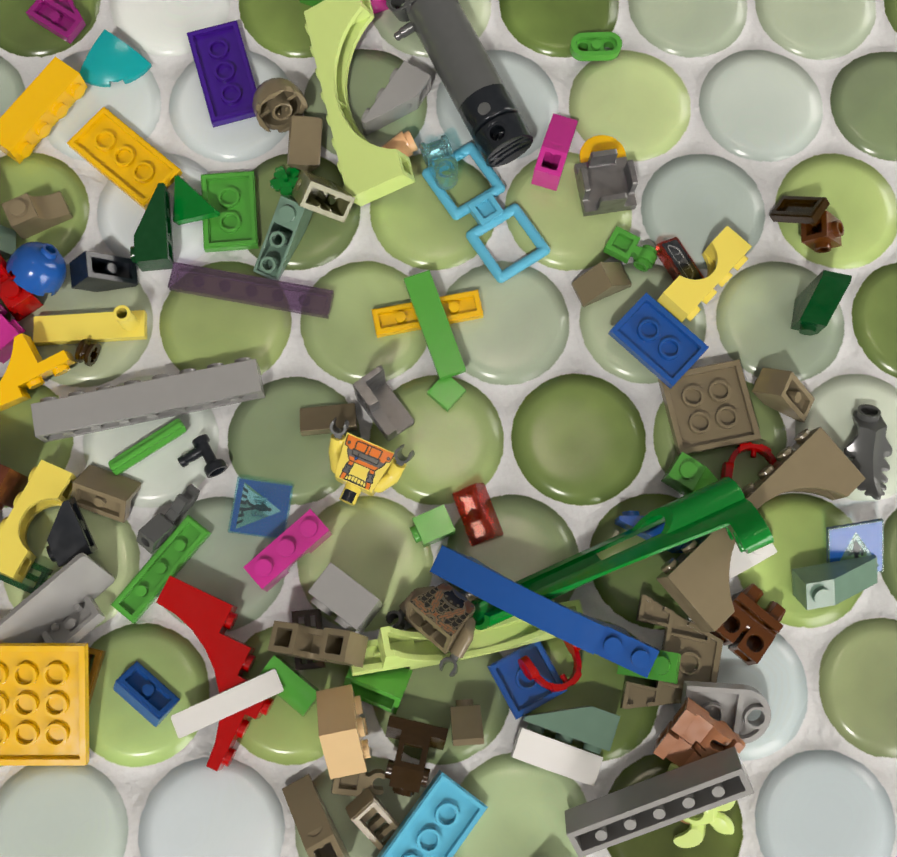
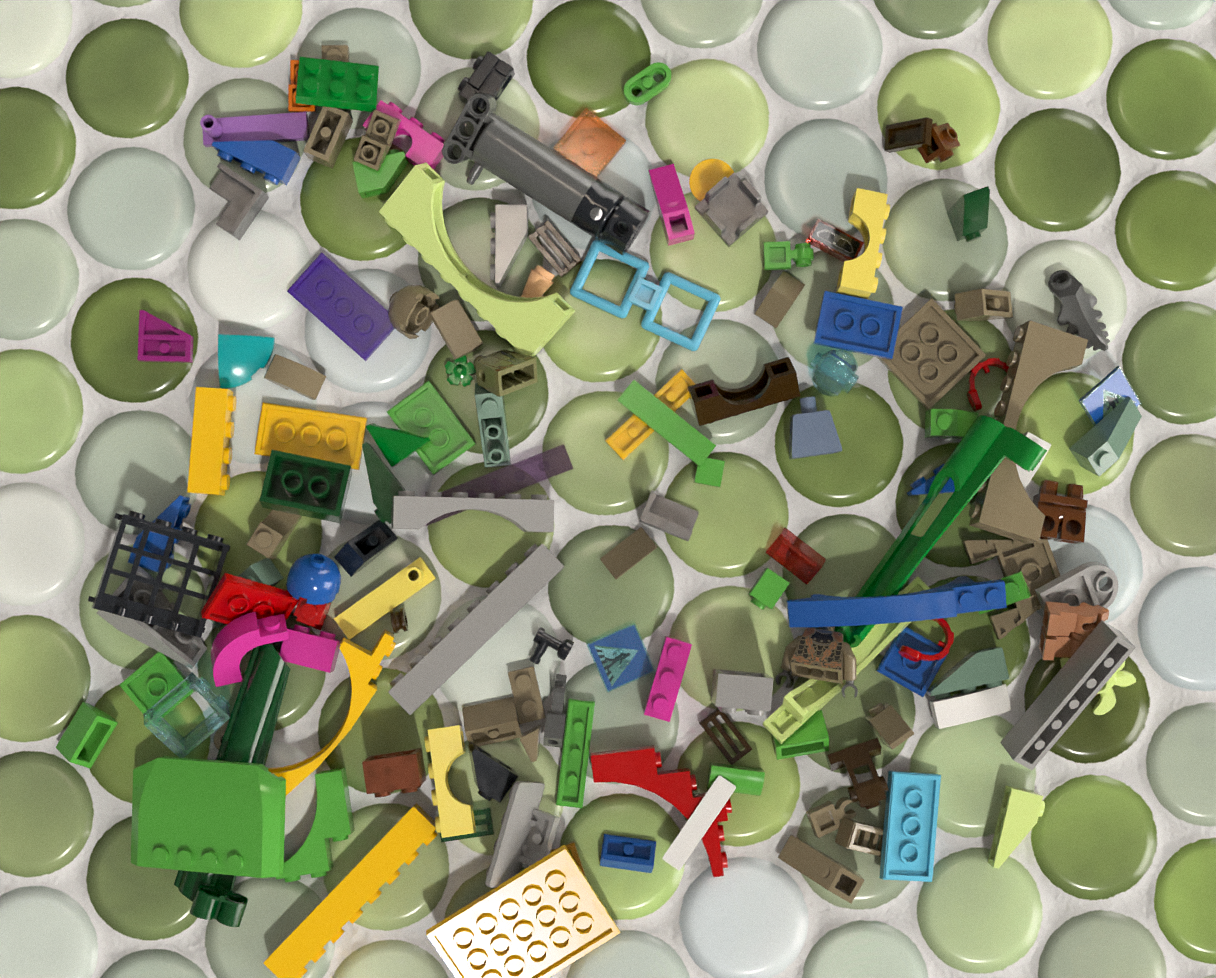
camera: 25 degrees left, 10 degrees up
(86, 188) = (306, 486): none -> dark green brick
(124, 530) = (531, 741): none -> dark tan slope
(144, 101) = (295, 377): none -> dark tan slope
(147, 446) = (499, 665): bright green axle -> none
(154, 487) = (526, 695): none -> dark tan plate
(164, 263) = (527, 514): none -> light grey arch
(315, 644) = (742, 736): dark tan arch -> none
(342, 731) = (801, 788): tan brick -> none
(363, 464) = (682, 574): torso -> none
(429, 111) = (541, 232): none -> tile
(440, 158) = (579, 274): clear light blue piece -> none
(519, 65) = (590, 143): none -> clear orange tile
(552, 349) = (773, 385): none -> dark brown arch
(560, 412) = (812, 432): none -> sand blue torso
(612, 371) = (834, 372): none -> clear light blue plant

